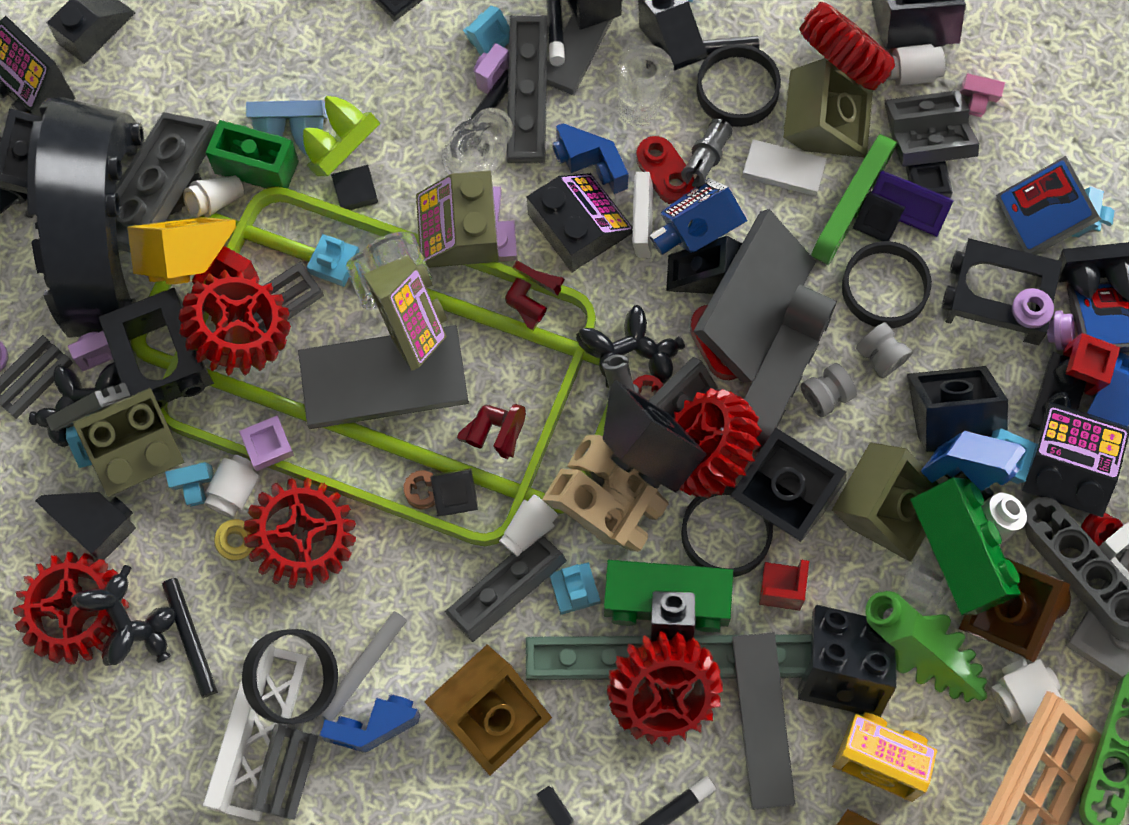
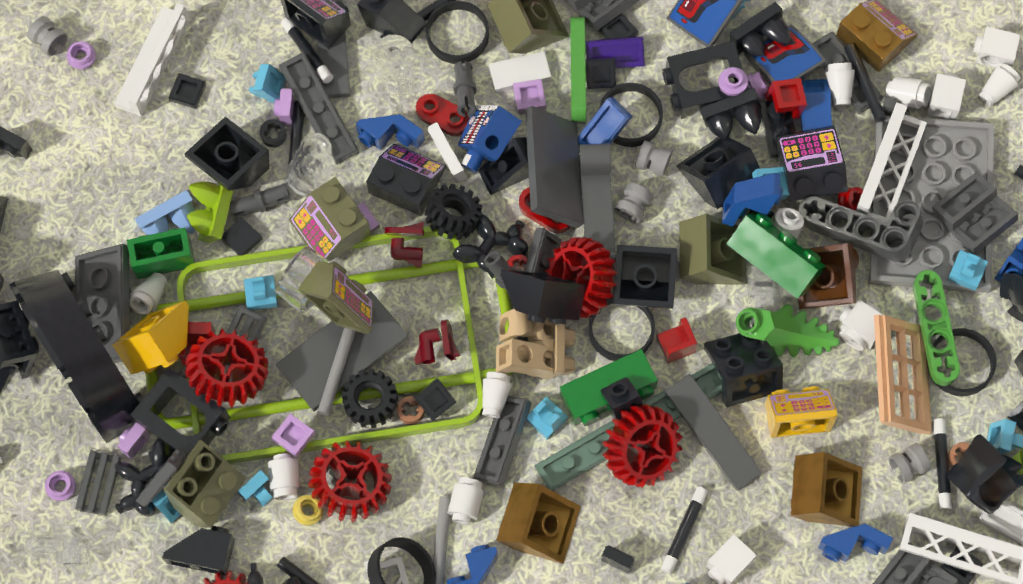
camera: 30 degrees left, 0 degrees up
(357, 397) = (336, 372): none -> light grey bar
(372, 426) = (370, 380): none -> black tyre
(391, 89) = (230, 156): none -> black slope
(399, 158) = (260, 200): none -> dark grey pin
(419, 633) = (466, 500): none -> white brick
(453, 83) = (264, 131): none -> black bush
(620, 273) = (449, 223): none -> black tyre
(780, 198) = (529, 94): none -> lavender plate
(848, 278) = (605, 124): none -> tile
(1028, 345) = (743, 107): none -> black tile

